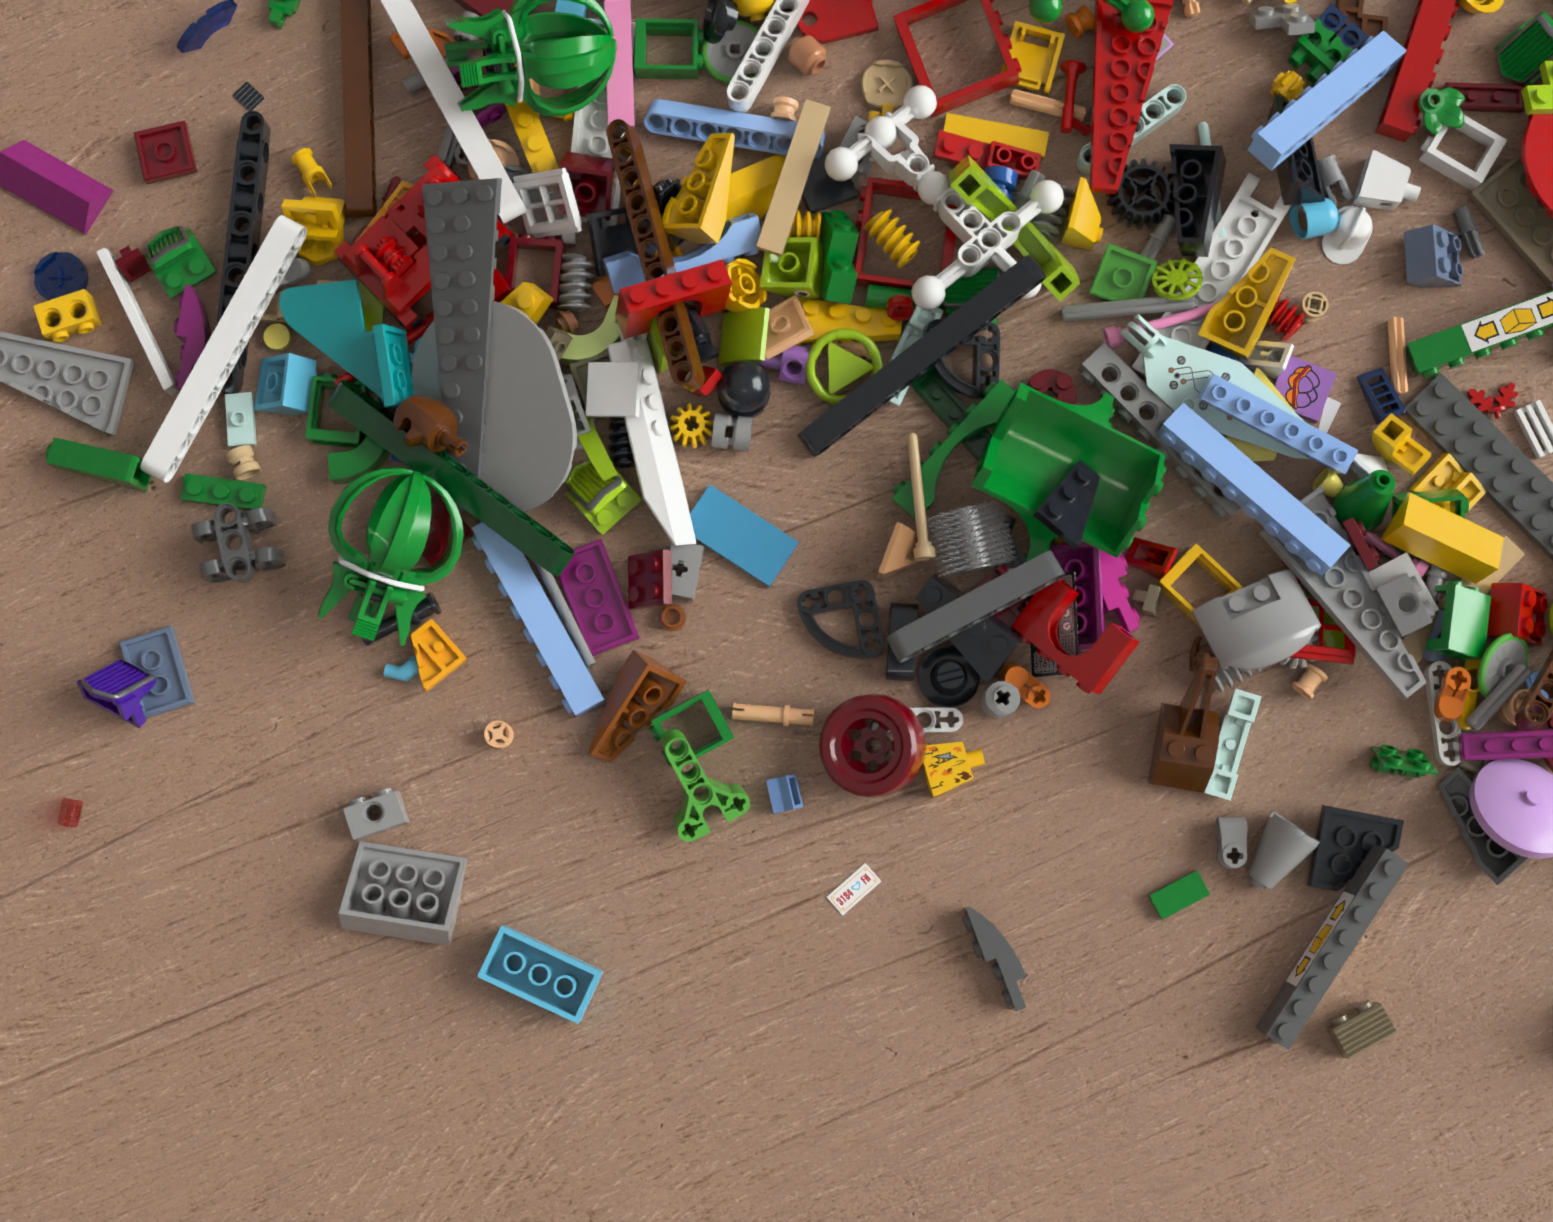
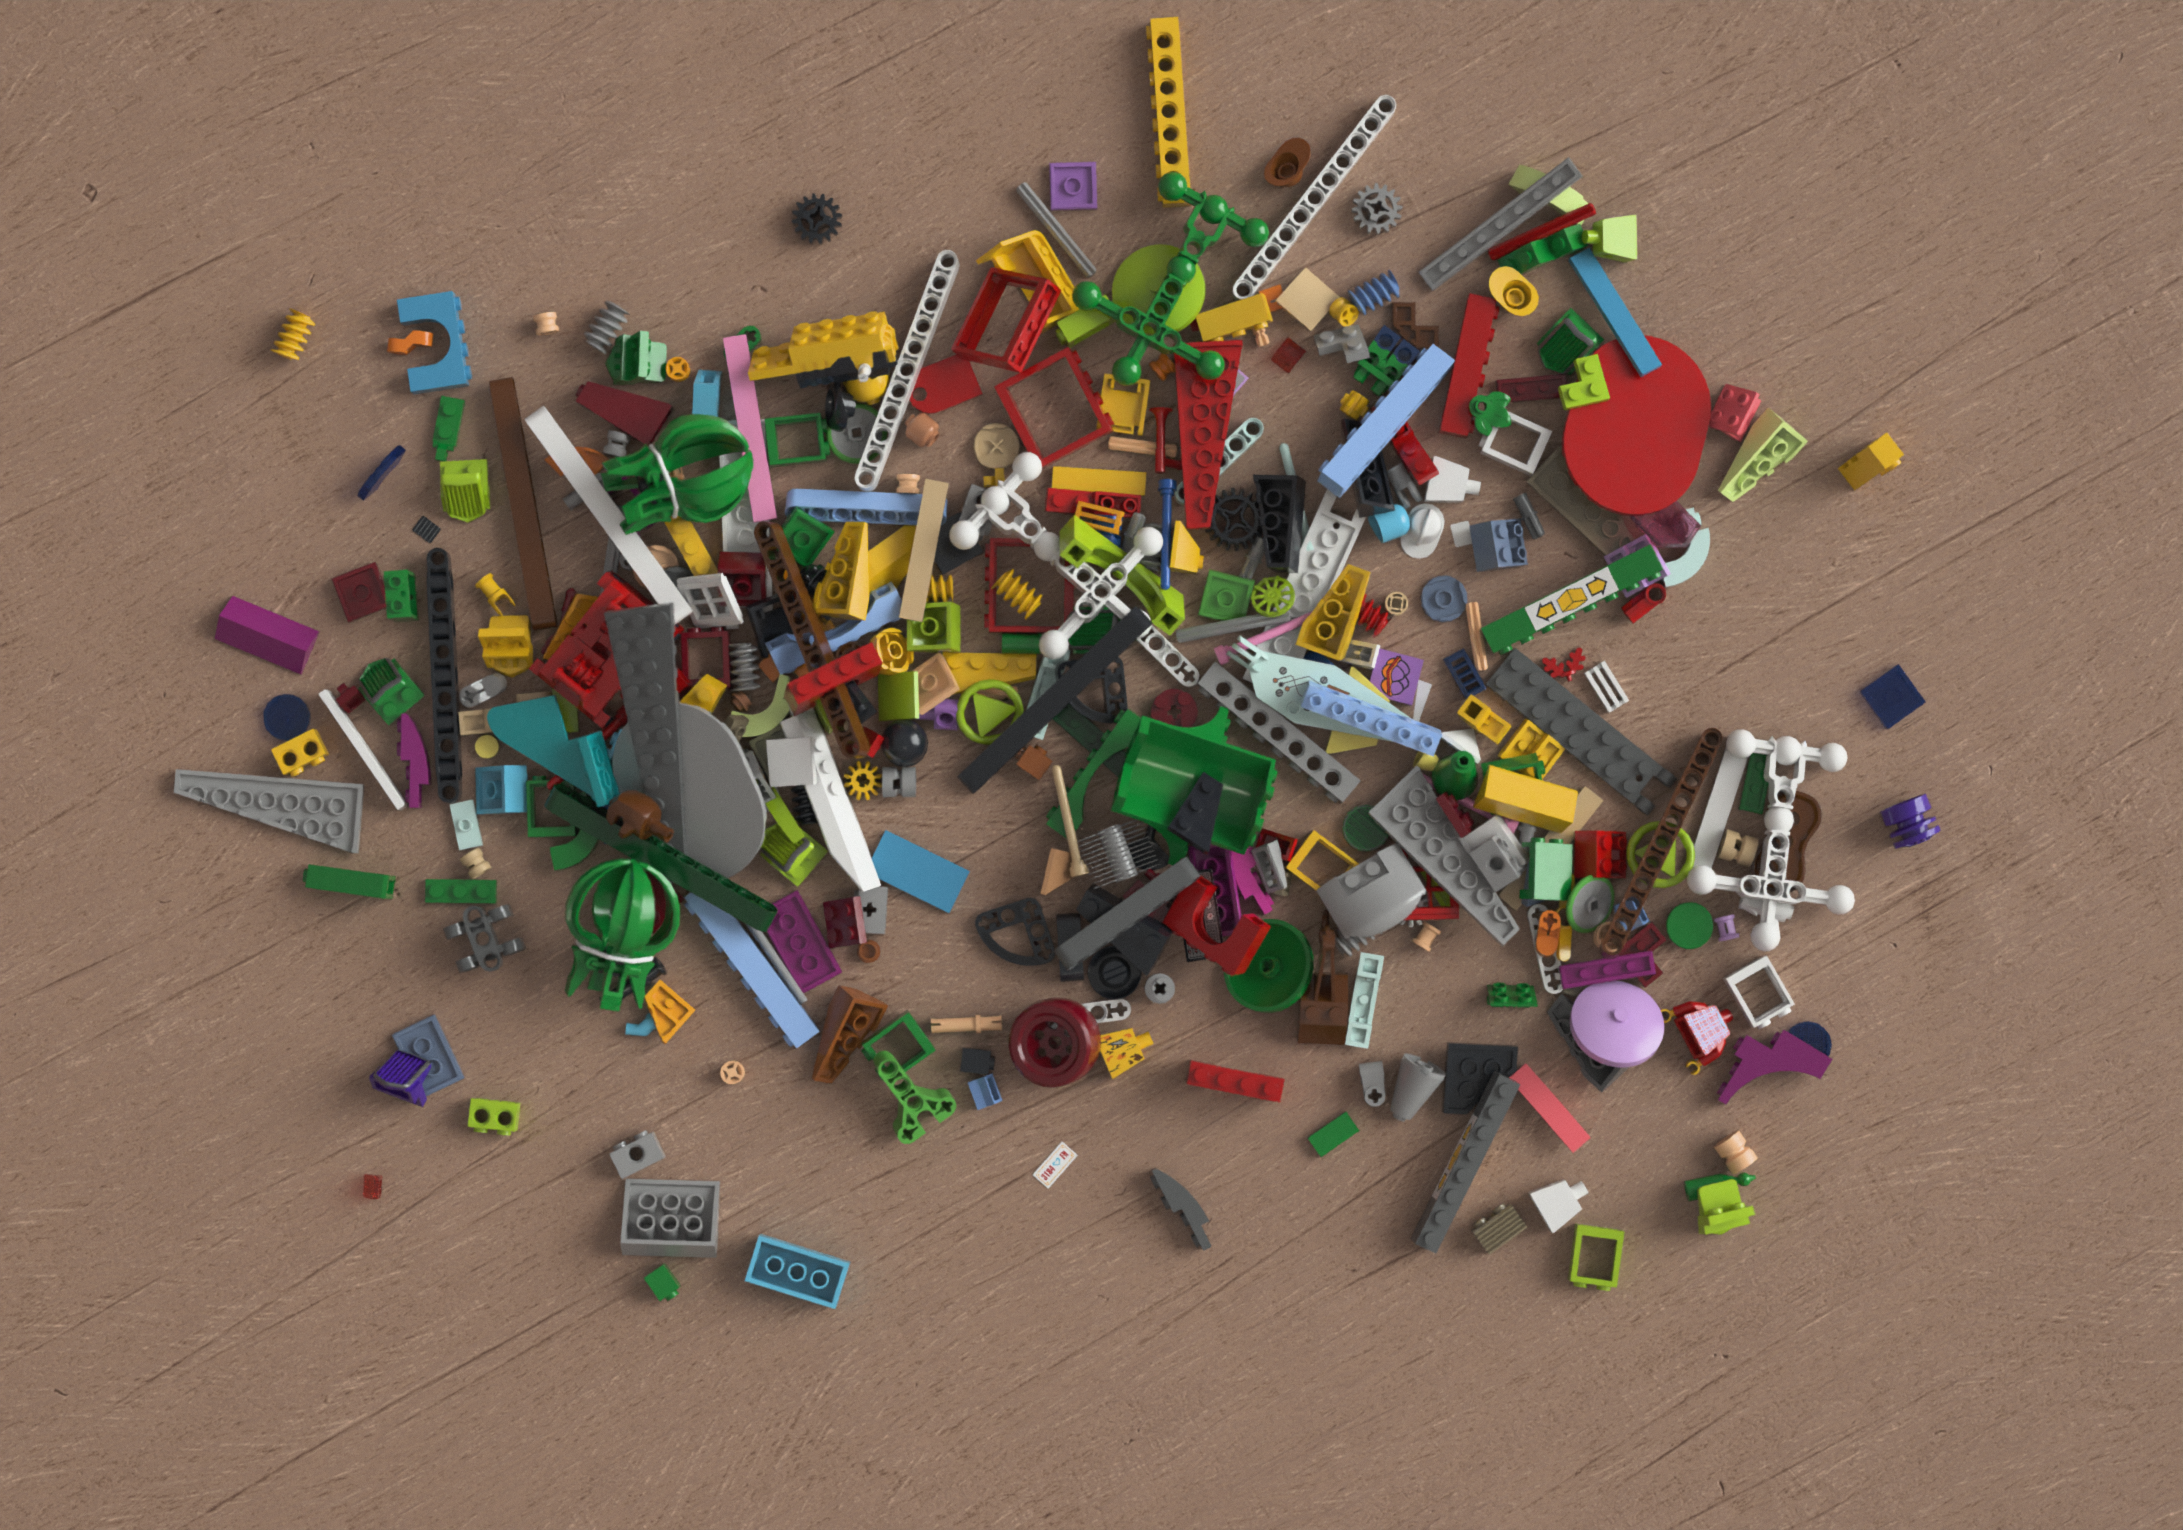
camera: 10 degrees left, 5 degrees up
(202, 149) = (398, 588): none -> green window
(220, 744) = (494, 1109): none -> lime brick
(223, 349) = (446, 768): white beam -> none
(295, 56) = (465, 488): none -> lime piece
(383, 967) = (663, 1283): none -> green brick
(664, 149) = (805, 536): none -> green tile
(780, 757) = (977, 1061): none -> black brick
(839, 246) = (972, 610): green arch -> none
(886, 429) = (1033, 761): none -> dark orange brick
(899, 307) = (1031, 654): red tile -> none
(1012, 174) = (1117, 523): none -> light orange tile
(1034, 693) = (1189, 978): orange piece -> none
(1041, 332) = (1166, 649): none -> white beam
(1071, 147) = (1166, 488): none -> blue piece
(1076, 815) = (1235, 1081): none -> red arch
(1133, 571) = (1262, 856): none -> light grey slope
(1138, 698) = (1277, 971): none -> green dish
(1218, 29) = (1288, 355): none -> clear red slope
(1249, 552) = (1361, 830): none -> tile
(1252, 489) = (1354, 779): light blue brick -> none
(1348, 146) = (1412, 454): none -> red slope
(1364, 310) = (1443, 598): none -> sand blue tile
(1390, 243) = (1461, 533): none -> white sticker
(1432, 1008) = (1558, 1202): none -> white torso
(1436, 899) = (1550, 1108): none -> coral slope
(1448, 1071) = (1601, 1232): none -> lime window
(1498, 697) = (1587, 930): light grey axle -> none

